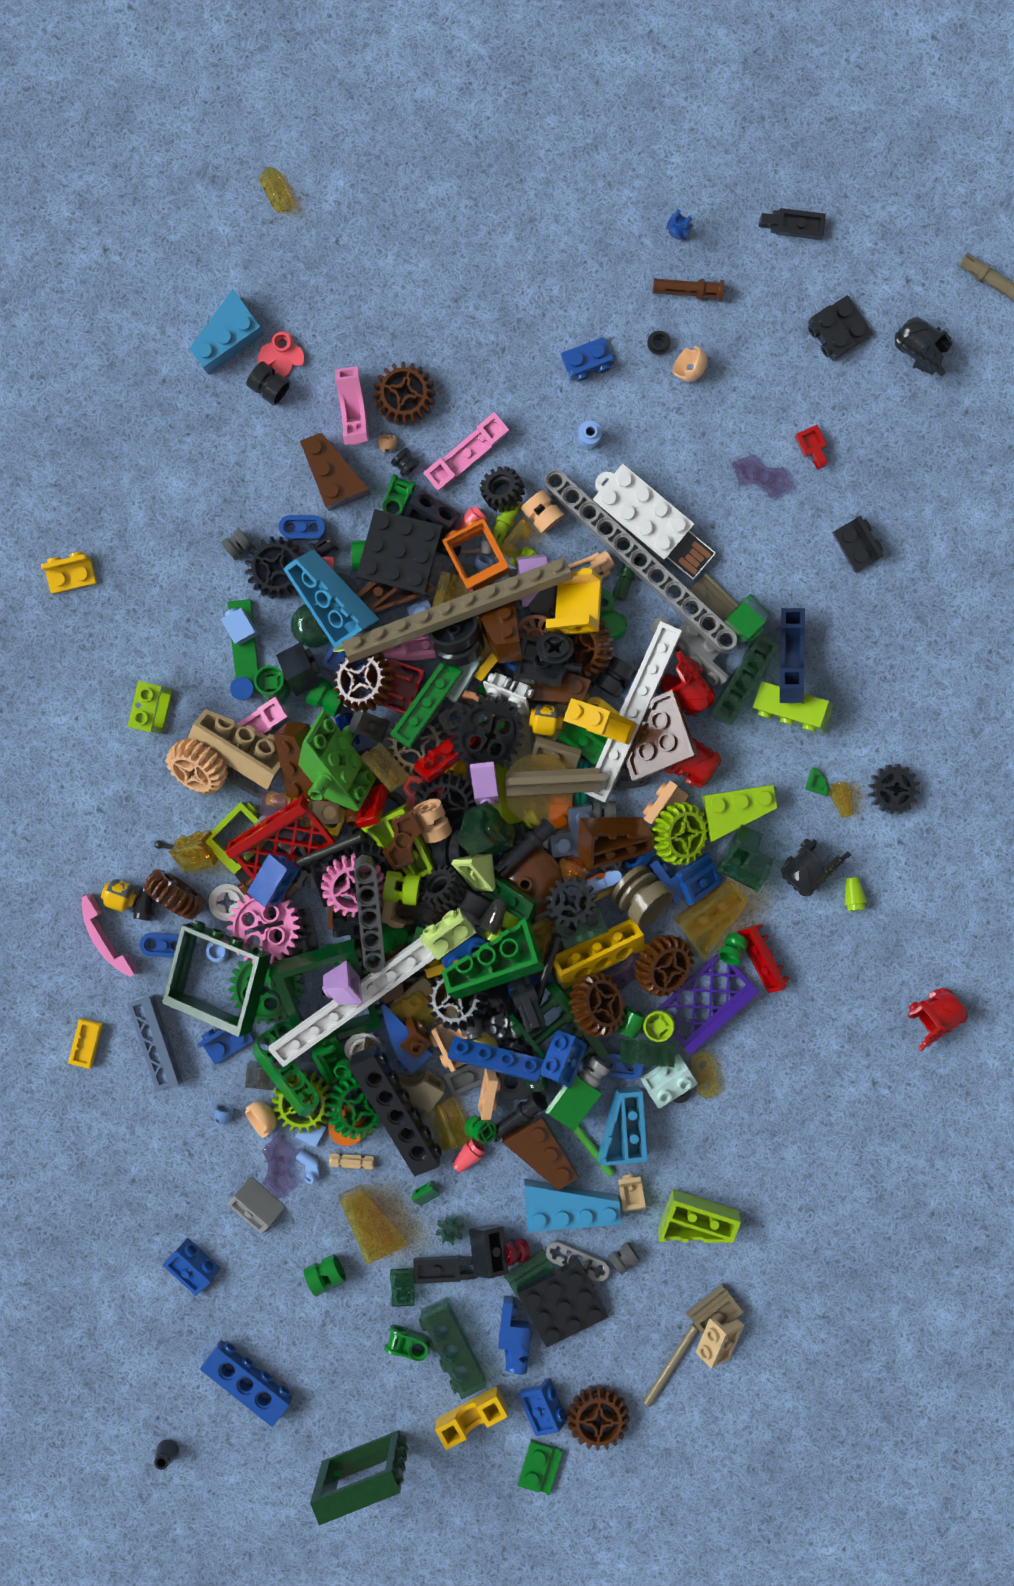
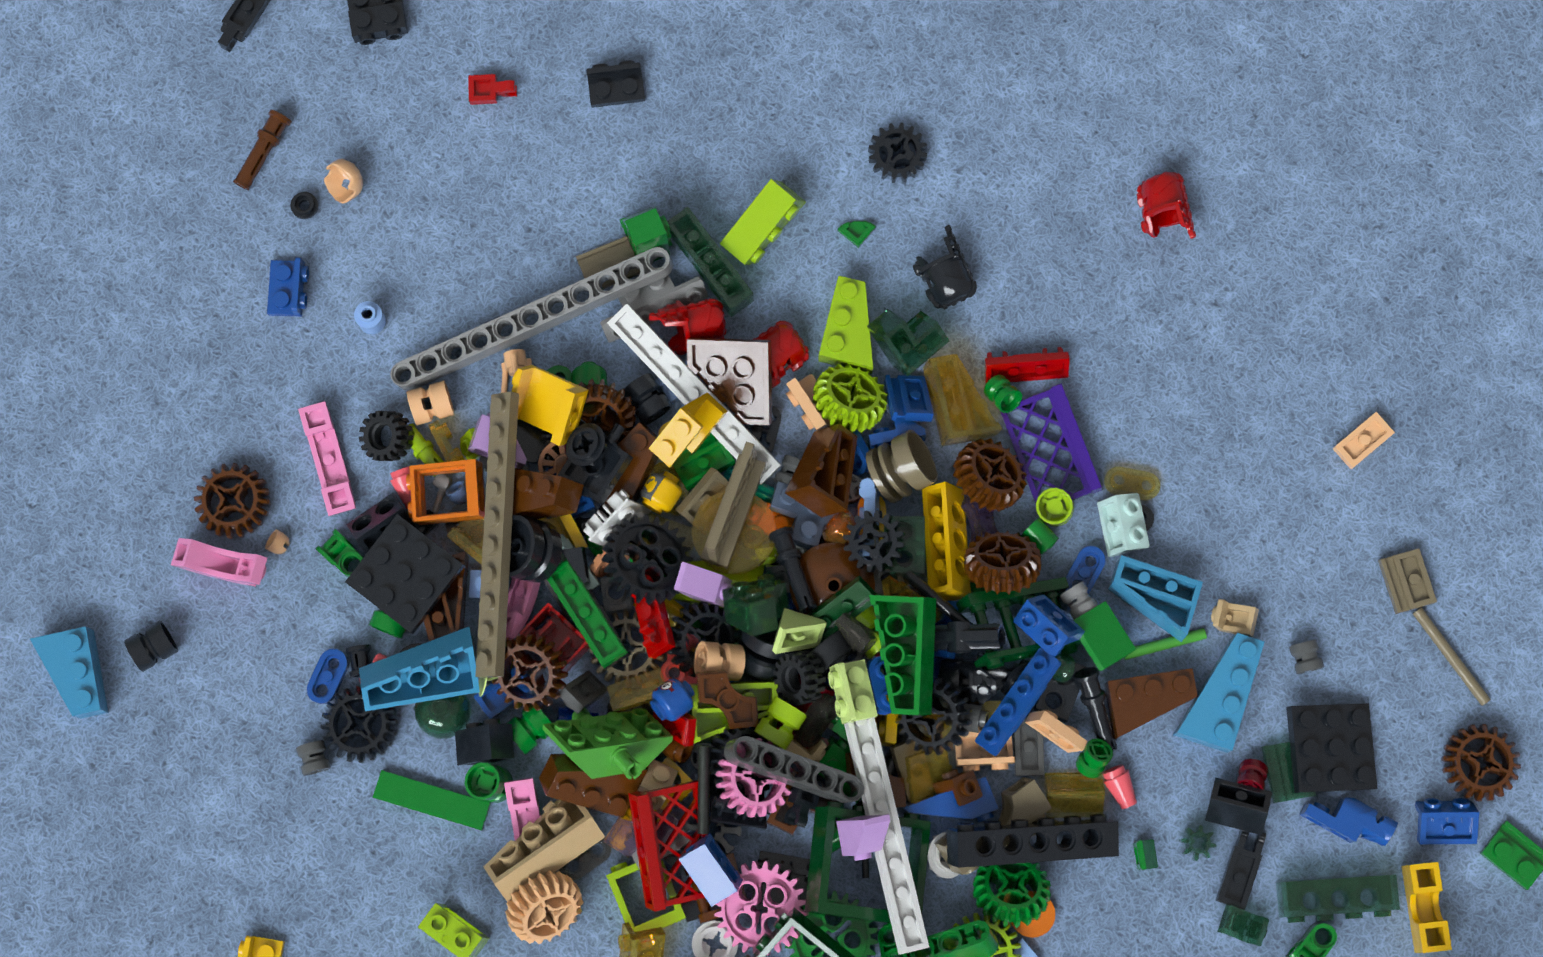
camera: 70 degrees left, 10 degrees down
(239, 626) = (406, 792): light blue brick -> none
(242, 688) = (478, 820): blue tile -> none
(281, 358) = (129, 621): coral plate -> none
(326, 1055) = (943, 895): green hinge -> none
(332, 474) = (283, 616): reddish brown wedge -> none
(342, 1069) = (964, 884): green hinge -> none
(351, 1161) = (1074, 925): tan axle -> none
(371, 1226) = (1157, 932): clear yellow wedge -> none
(384, 799) = (672, 699): none -> blue head
(405, 462) = (307, 531): black wheel -> none
(465, 679) = (578, 561): none -> black piece
(559, 1259) = (1269, 721): light grey beam -> none
(624, 581) = (547, 347): dark green axle -> none
(647, 1053) = (1080, 533): clear green brick -> none
(651, 520) = (493, 289): white piece -> none
(679, 226) = (190, 132): blue plate -> none
(697, 1219) = (1291, 557): lime wedge -> none
(719, 1341) = (1441, 588): tan bracket -> none
(751, 471) = (506, 147): clear purple tile -> none
(792, 655) = (705, 199): dark blue arch -> none
(811, 1238) = (1363, 440): none -> light nougat plate
(842, 798) = (885, 211): clear yellow cone -> none
(854, 895) = (997, 240): lime cone -> none

